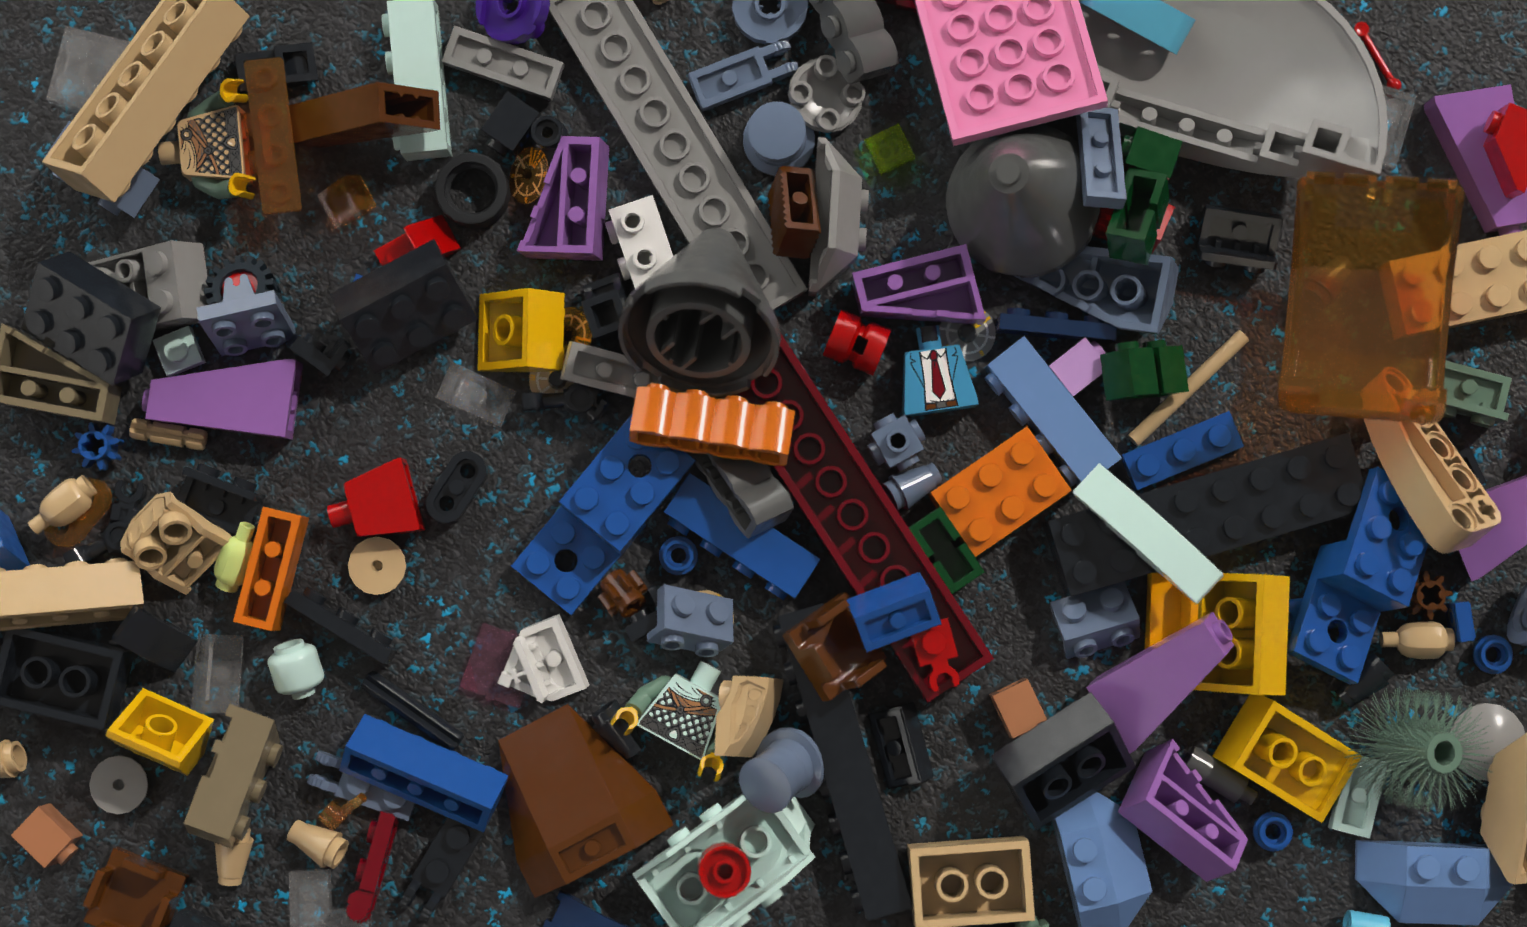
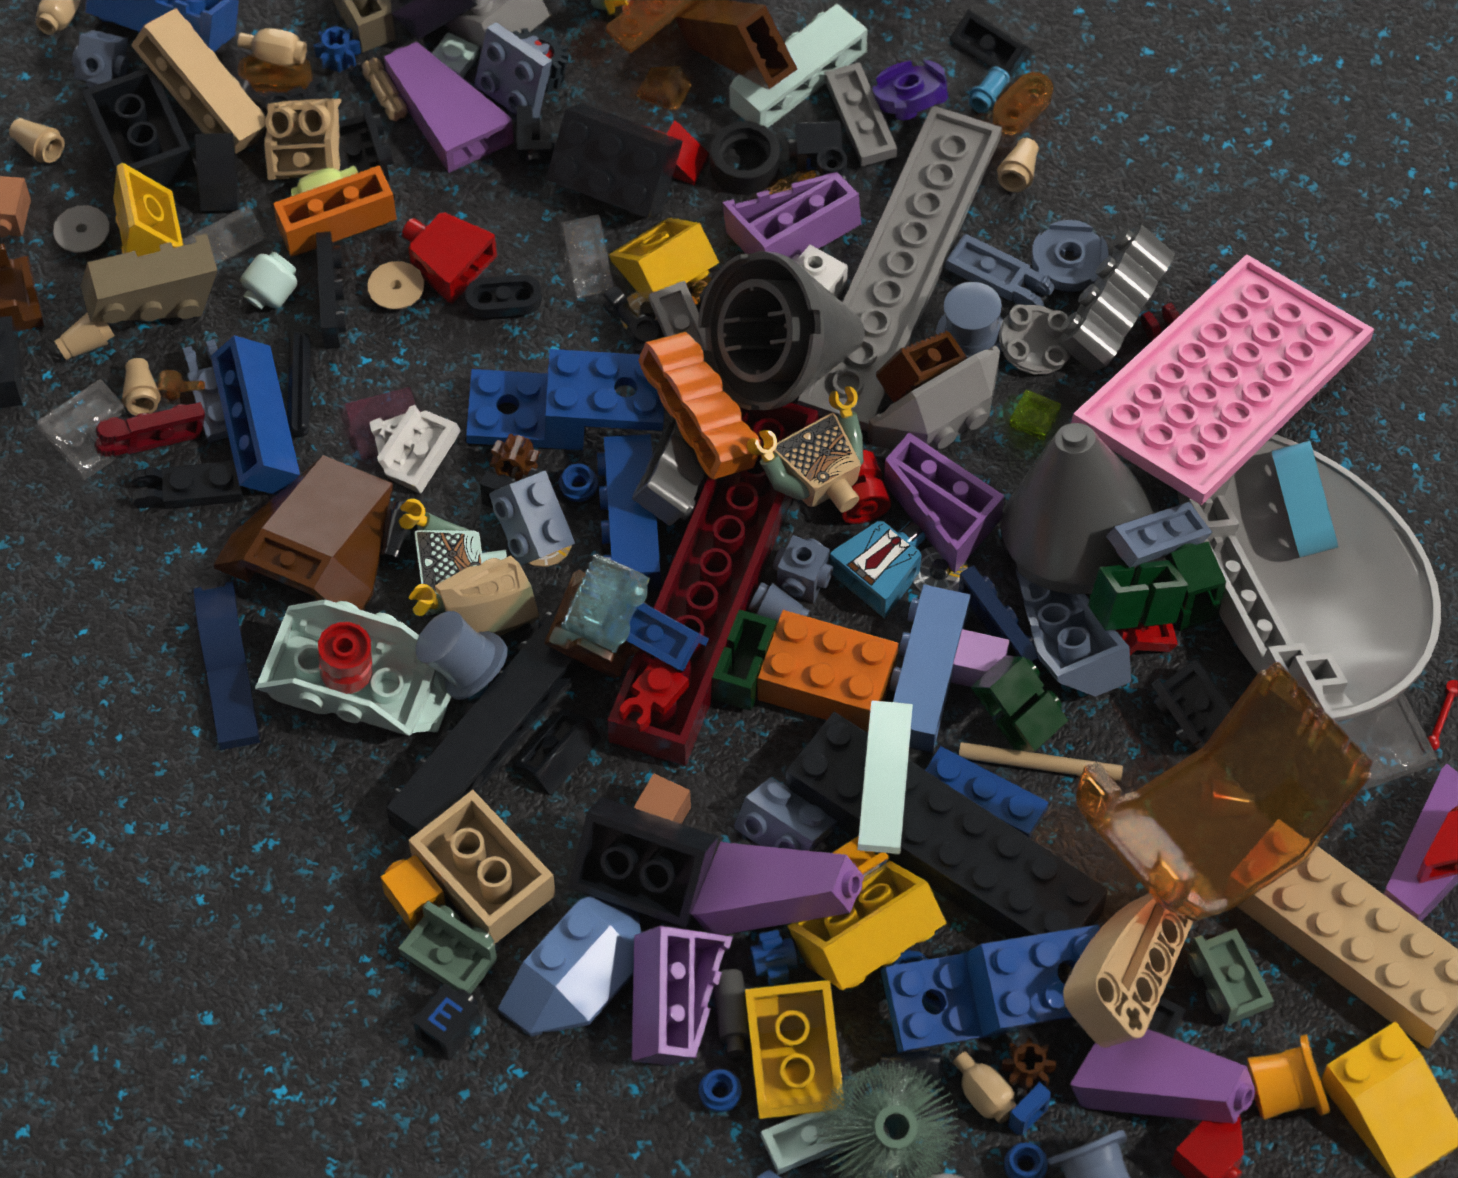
camera: 55 degrees right, 25 degrees down
(832, 368) = (818, 459): none -> torso
(852, 643) = (606, 603): none -> clear light blue brick
(1203, 715) = (773, 957): none -> blue gear

